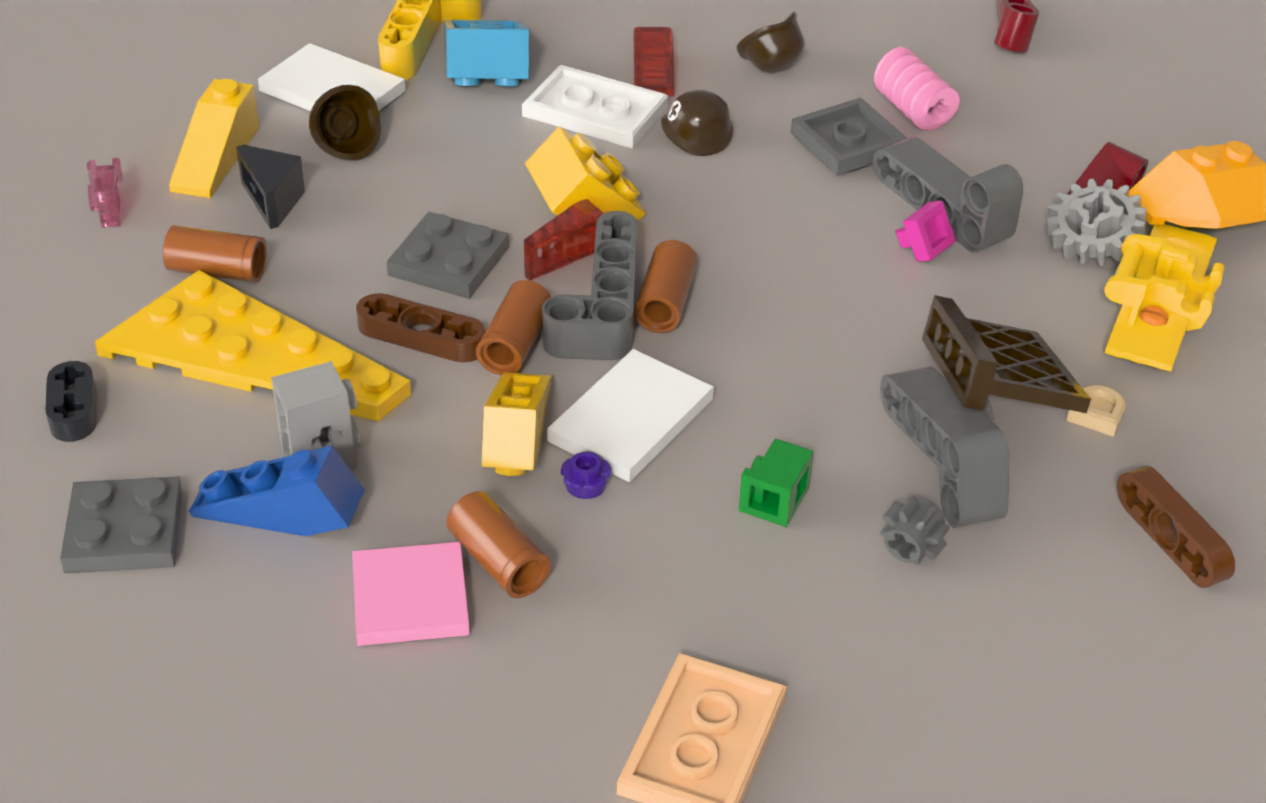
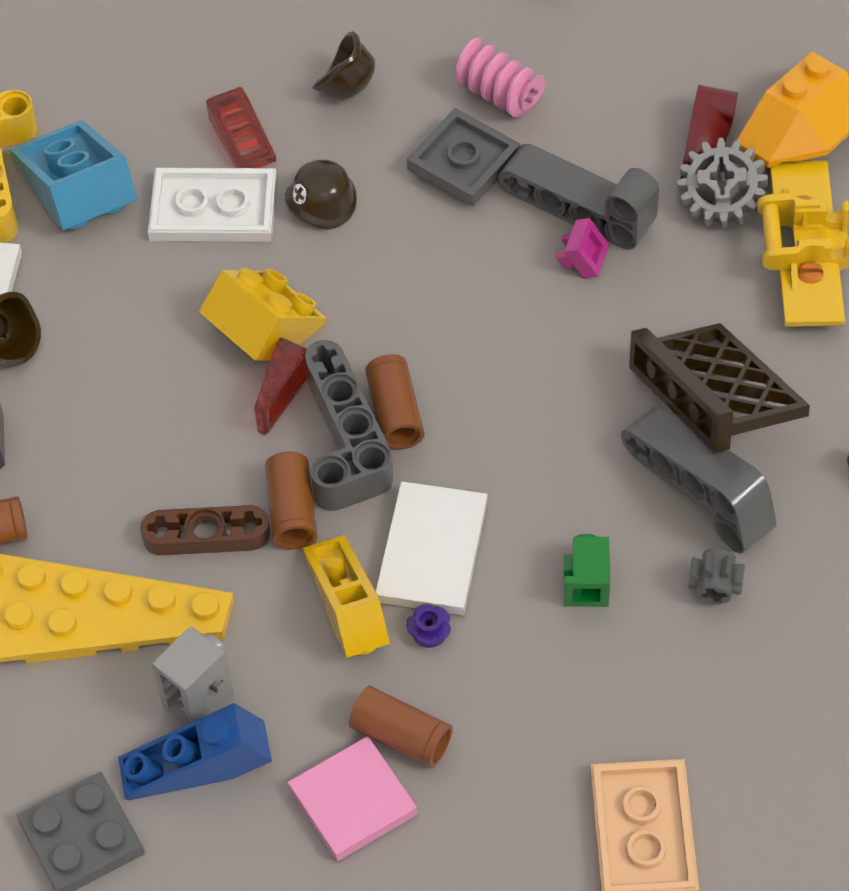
camera: 20 degrees left, 15 degrees up
(448, 254) = (181, 438): dark grey plate -> none
(1104, 411) = (805, 381): tan tile -> none

